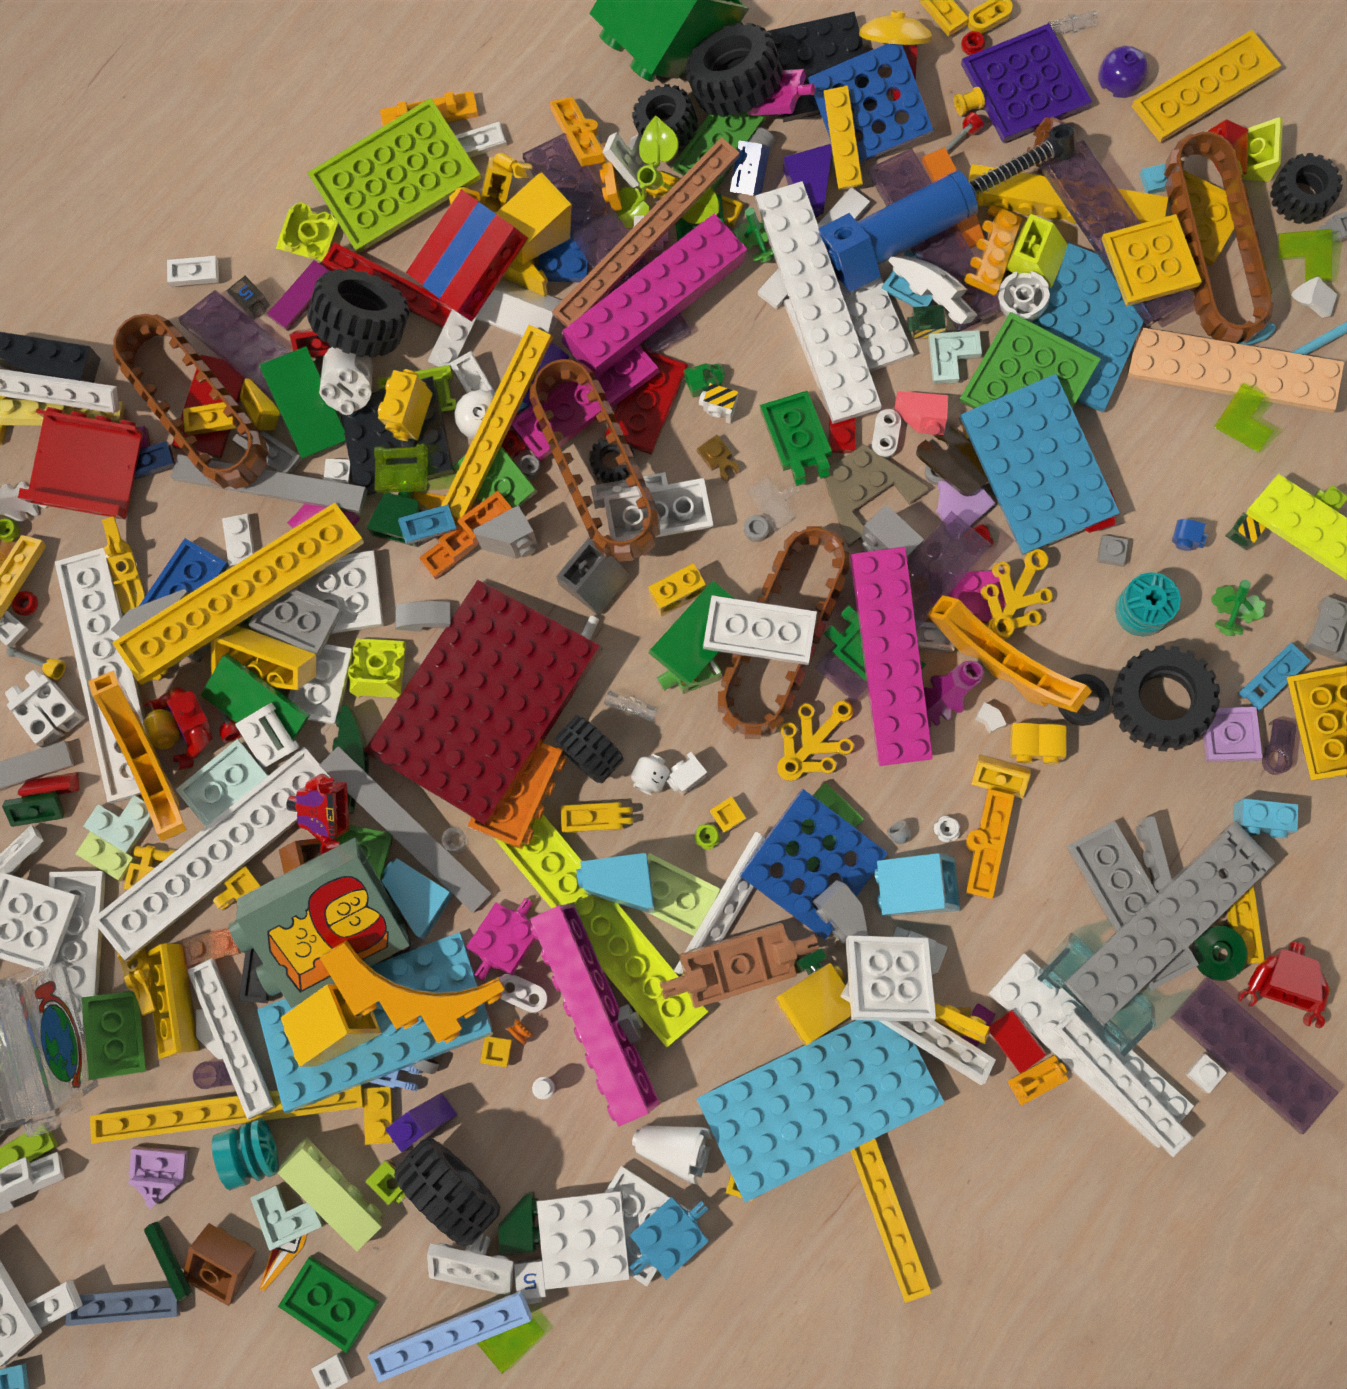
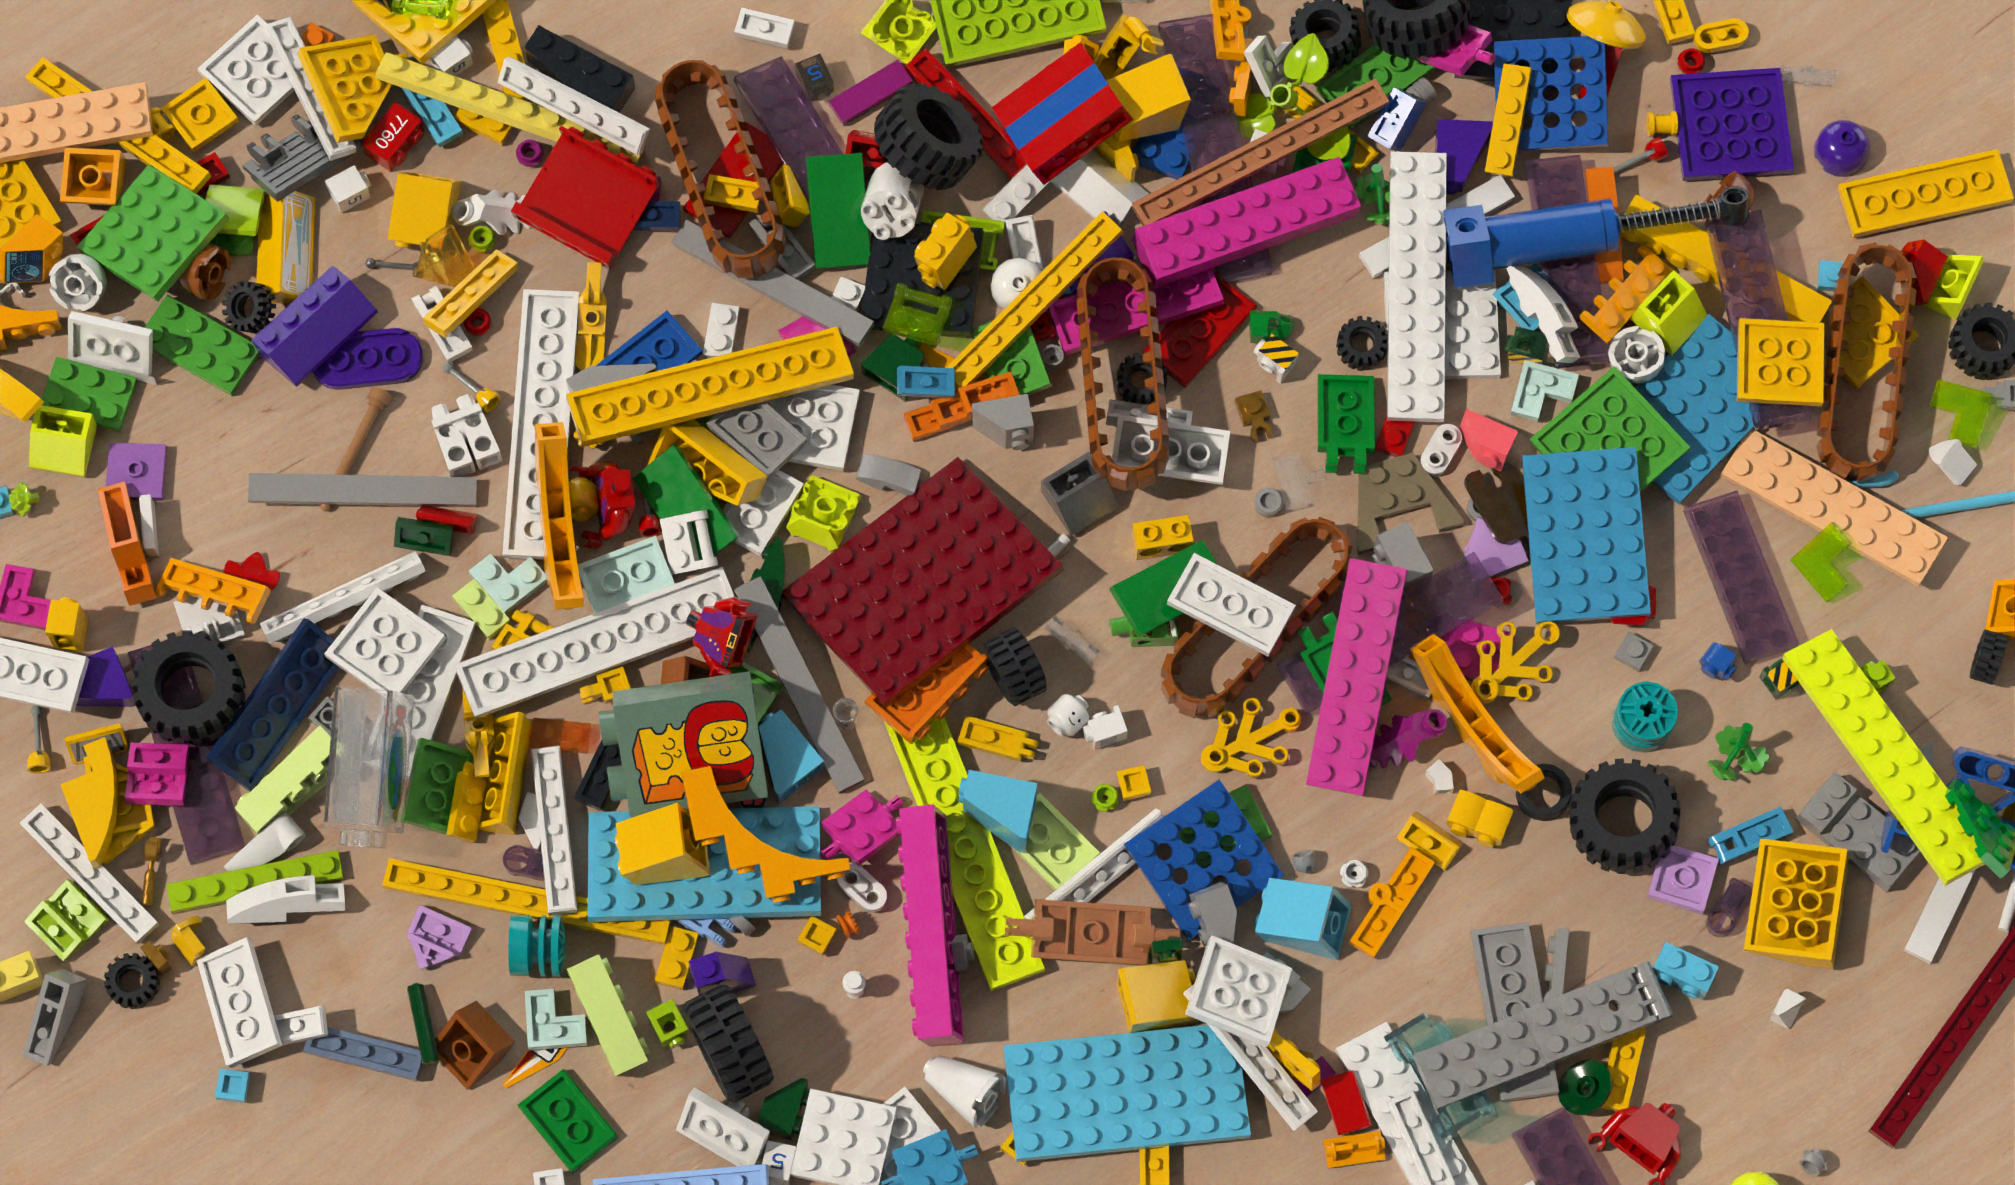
camera: 10 degrees right, 5 degrees down
(21, 438) = (526, 146): none -> magenta plate
(145, 1042) = (466, 805): none -> yellow hinge
(787, 352) = (1364, 327): none -> black tyre
(1179, 456) = (1741, 577): none -> clear purple plate

